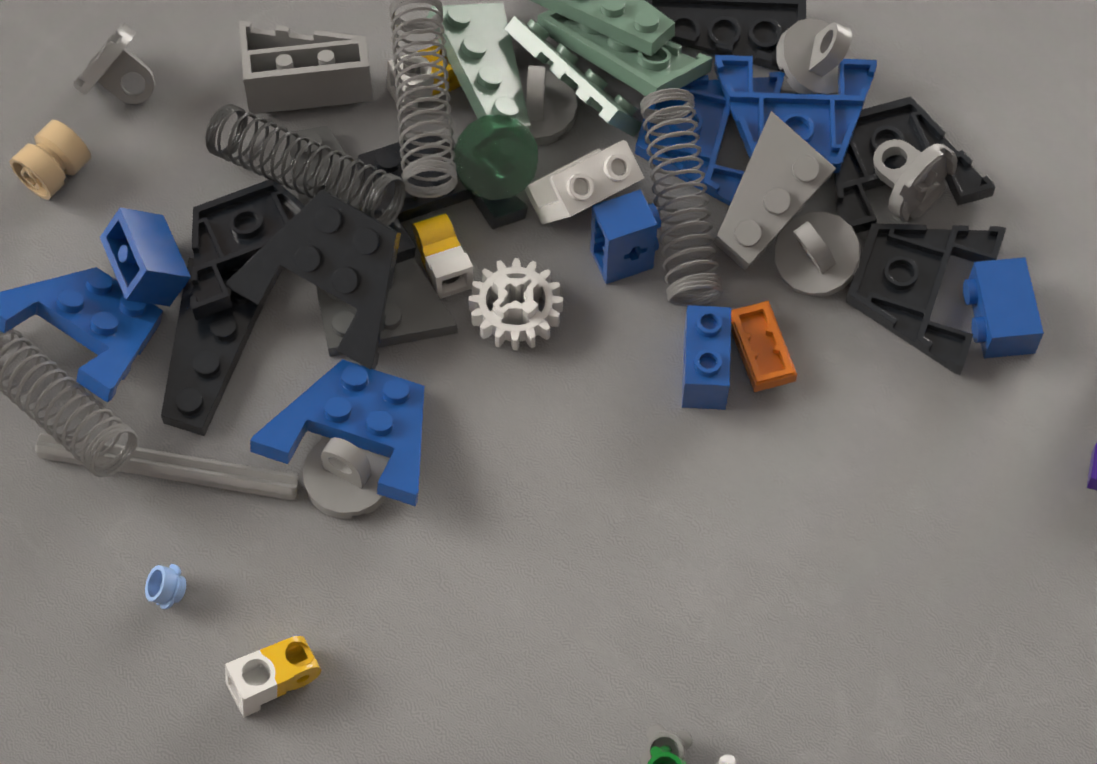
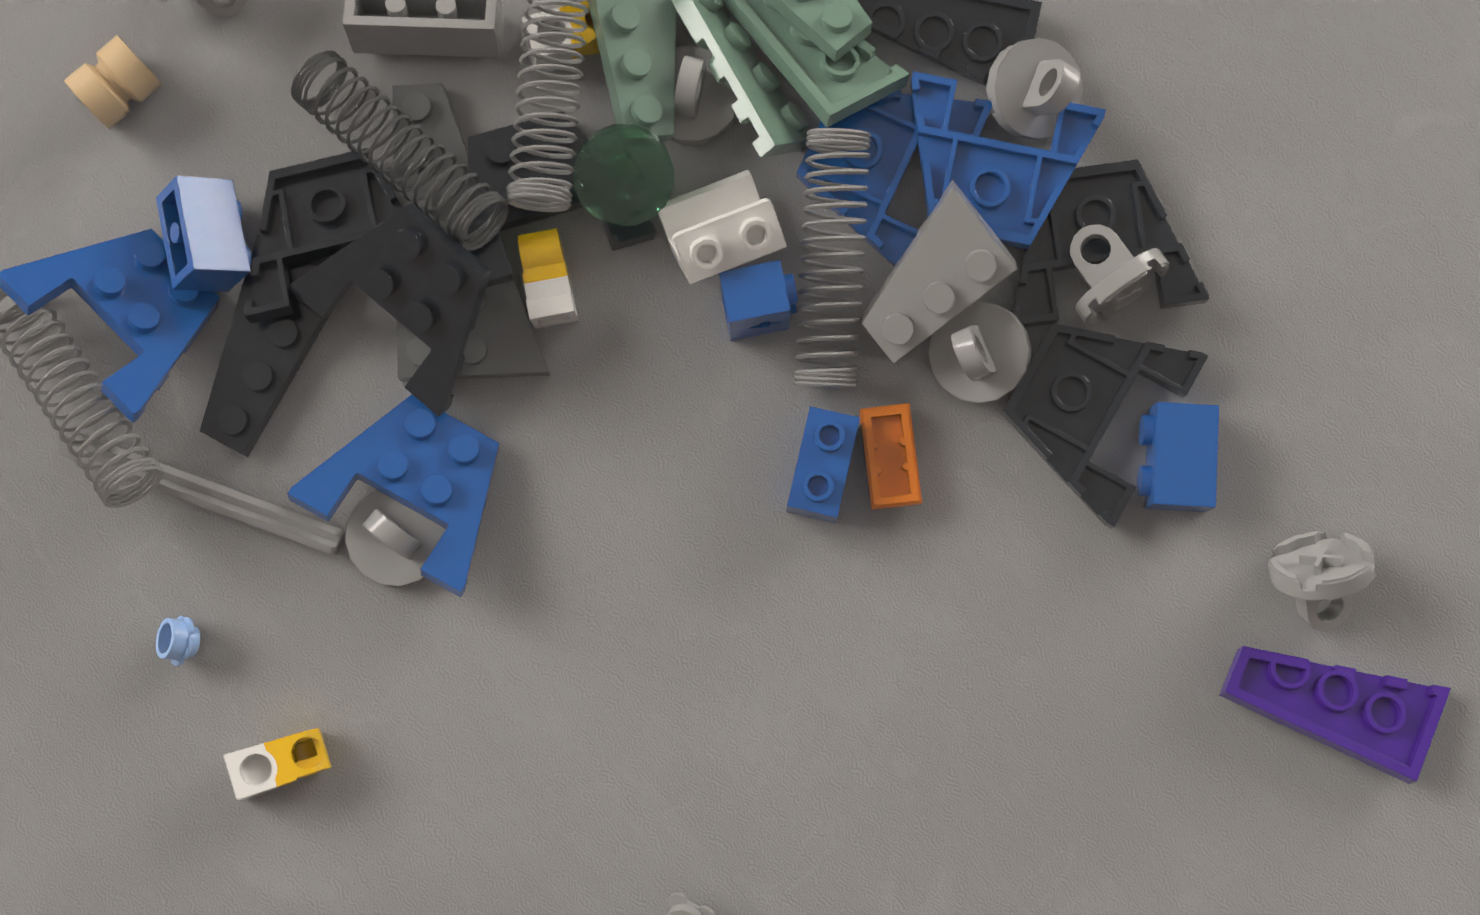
camera: 15 degrees right, 20 degrees up
(515, 304) = (637, 343): white gear -> none

